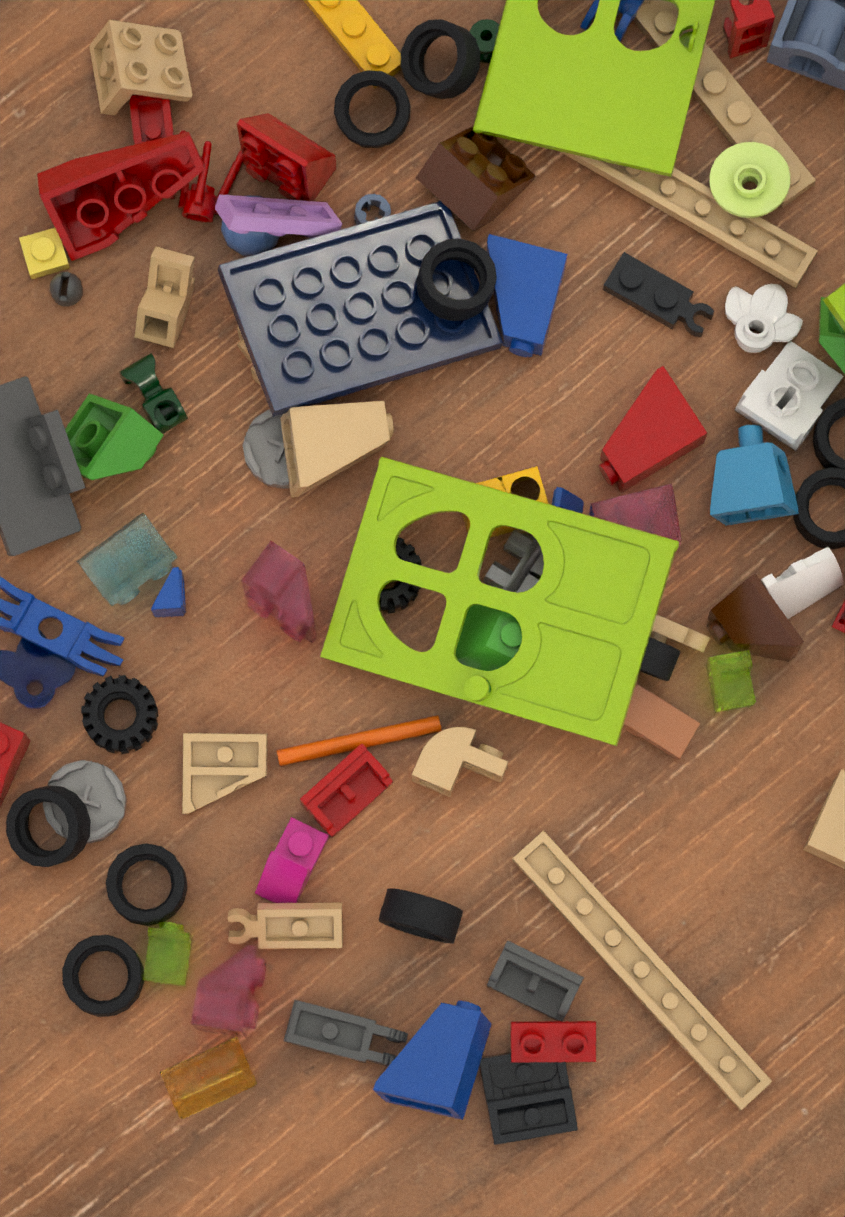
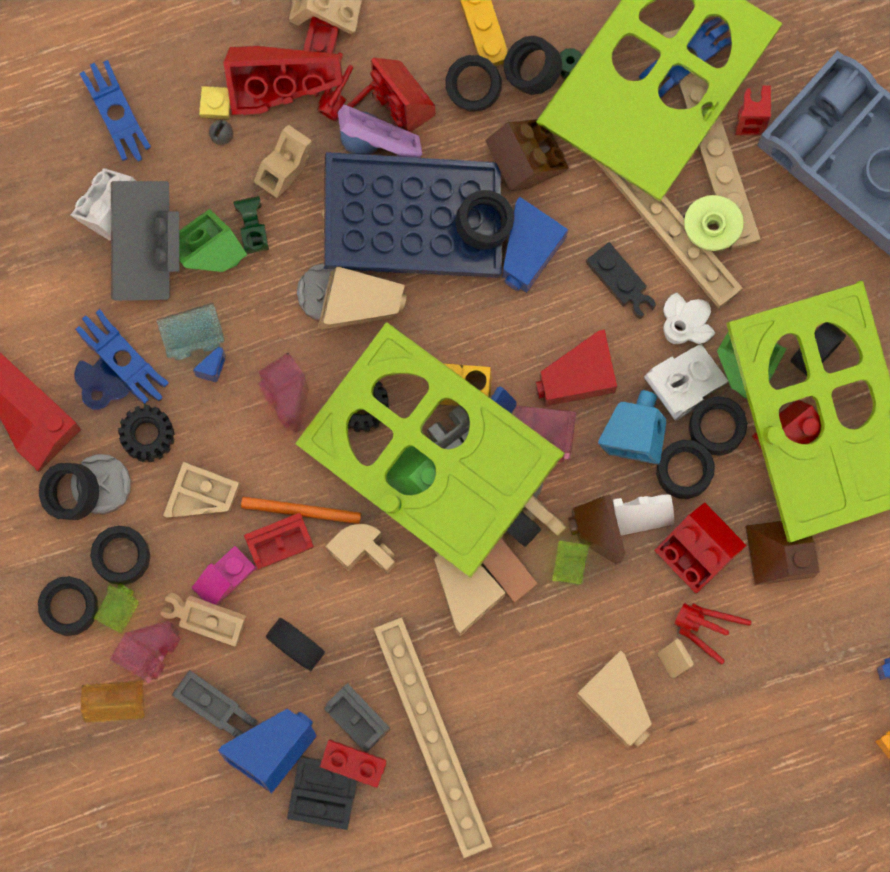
camera: 20 degrees right, 0 degrees up
(366, 202) = (448, 145): sand blue bush -> none
(613, 772) = (466, 596): none -> tan slope

